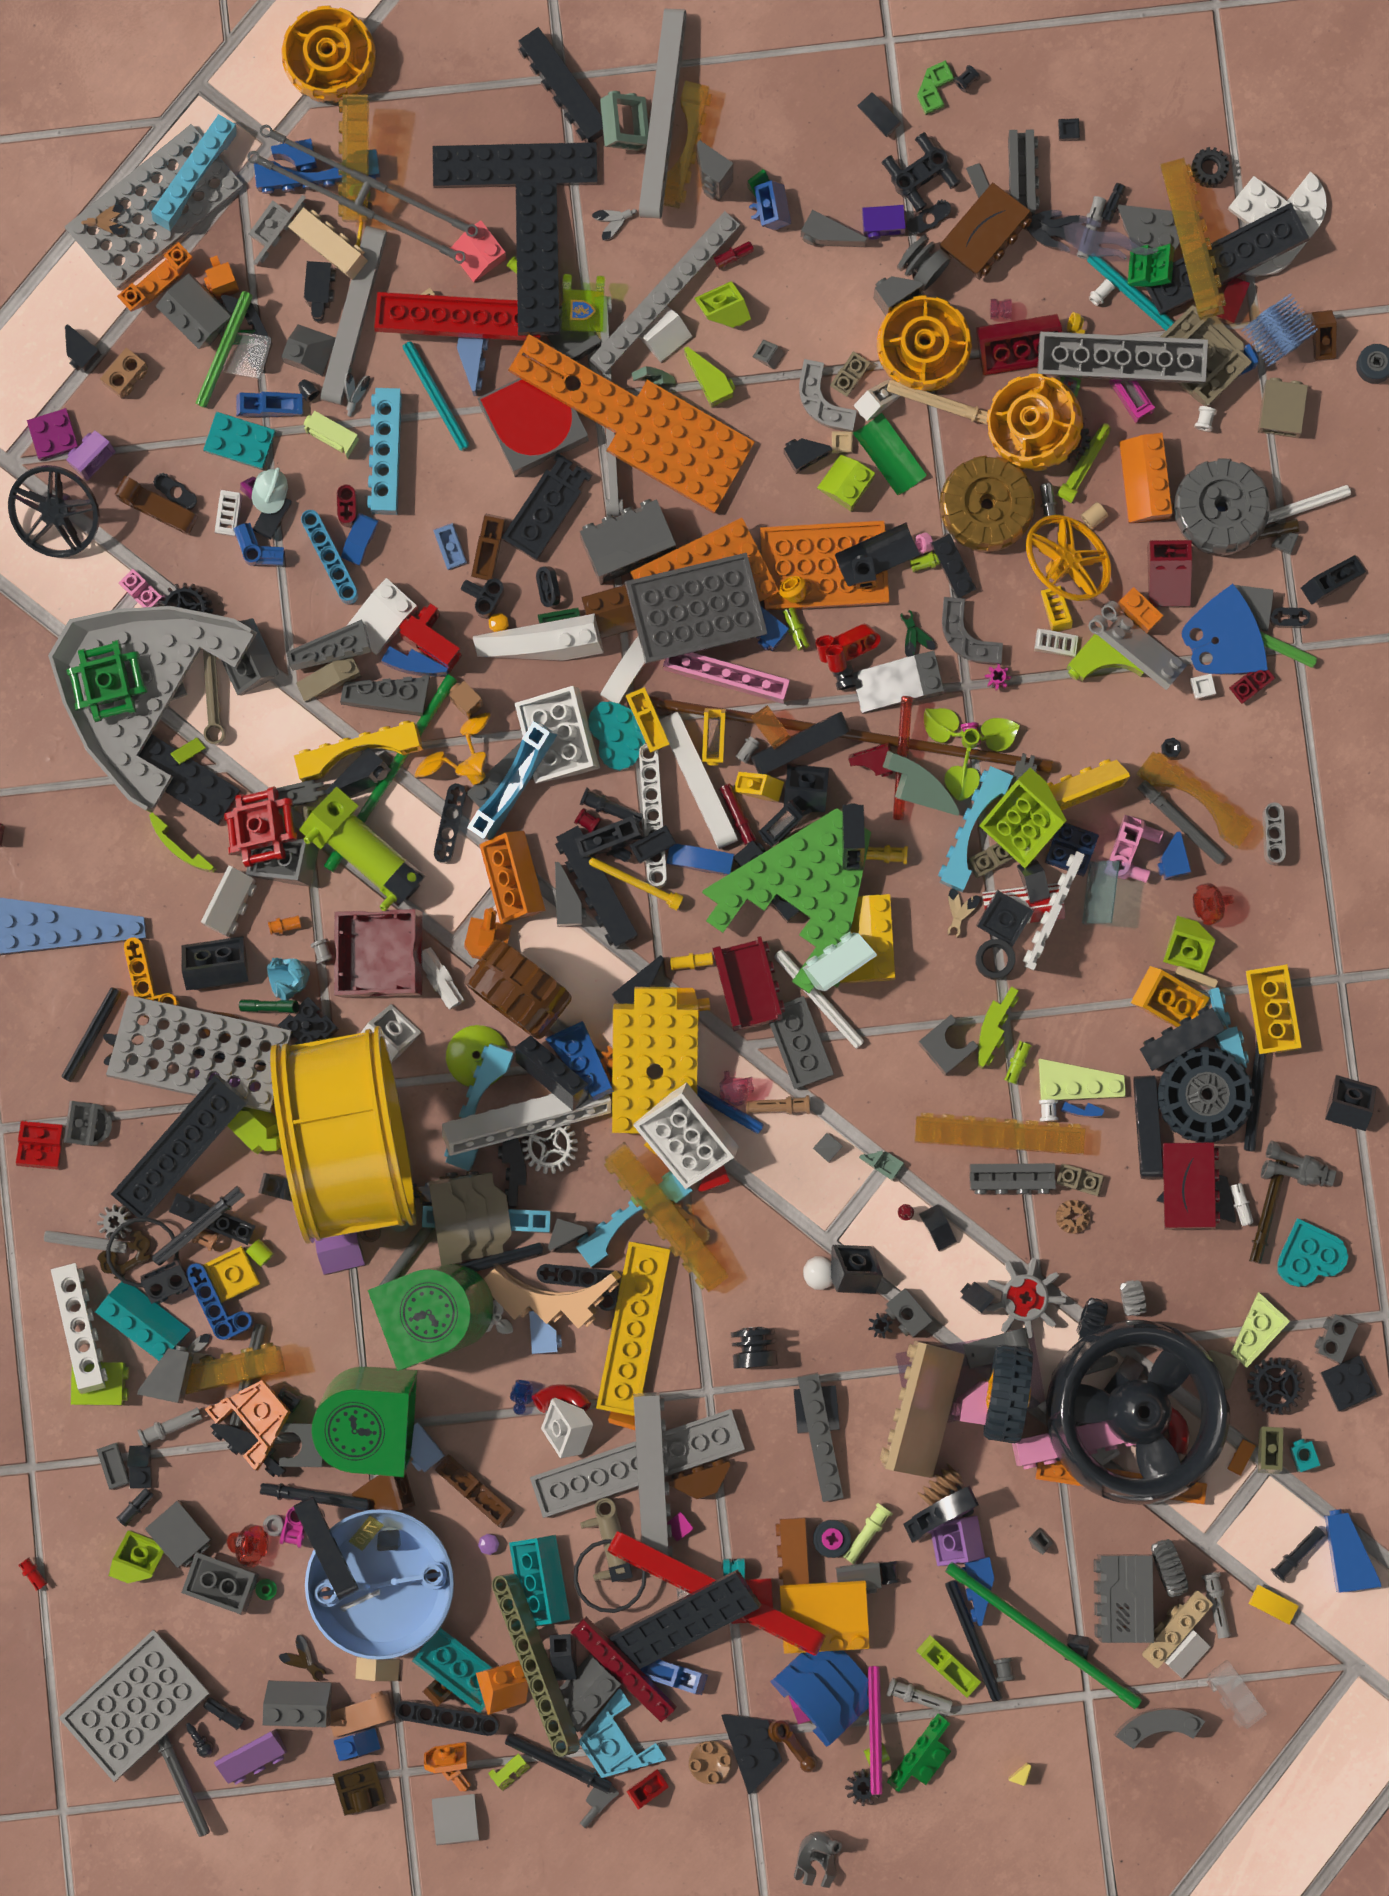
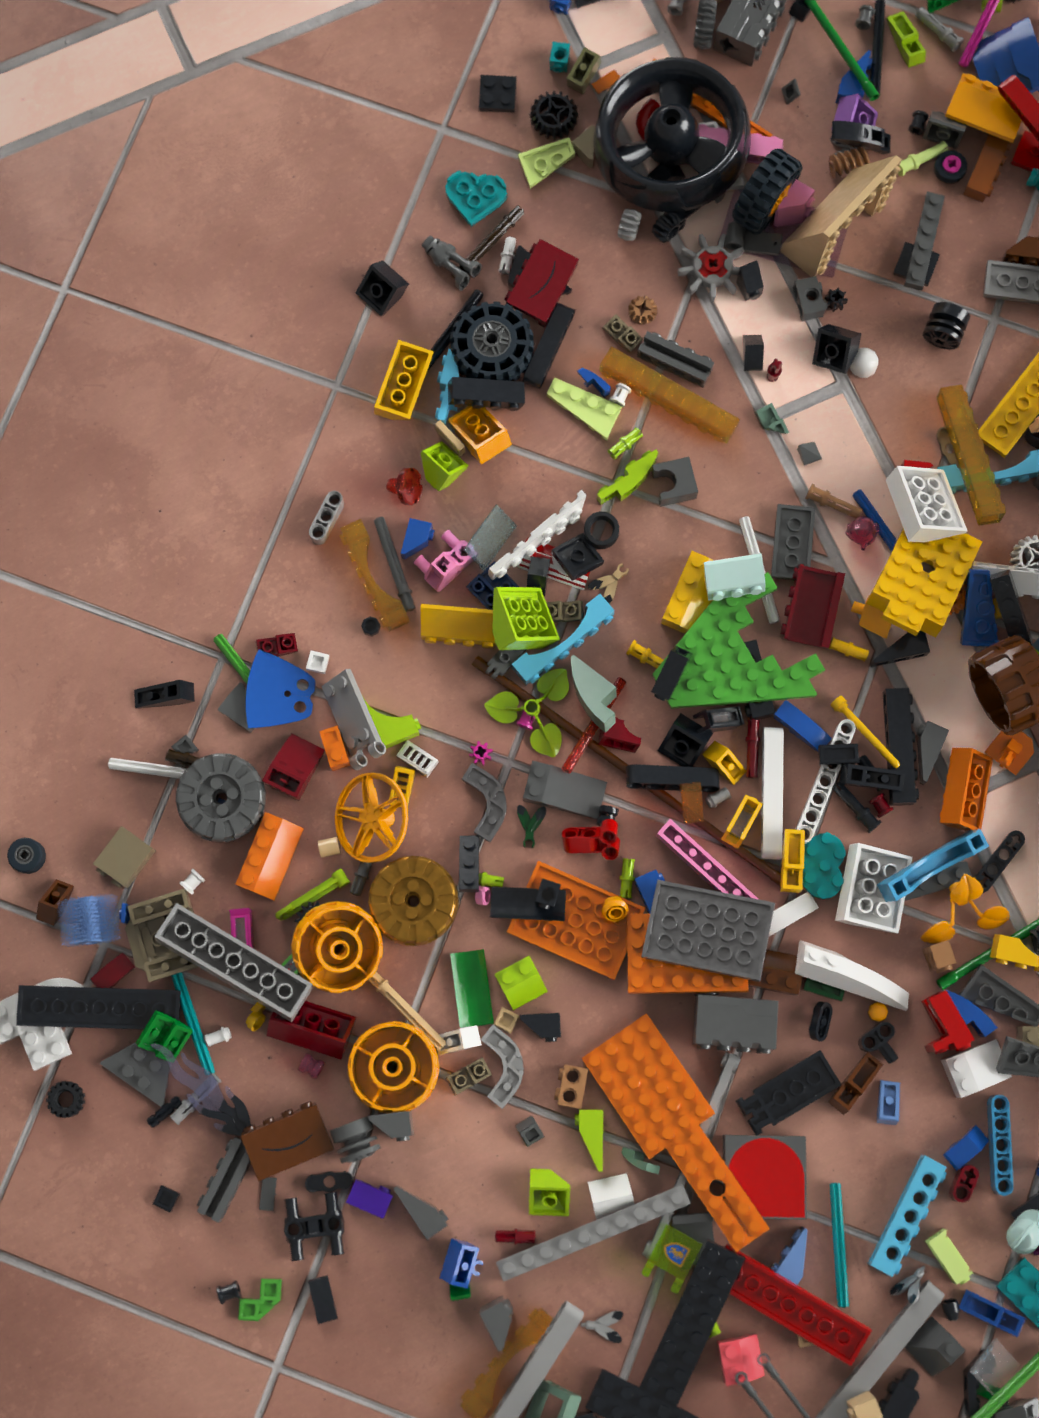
camera: 155 degrees left, 5 degrees down
(746, 412) = (576, 1087): none -> medium nougat brick
(1192, 238) = (116, 1040): clear yellow brick -> none
(1290, 612) = (214, 686): black beam -> none
(1340, 1341) = (486, 123): dark grey brick -> none

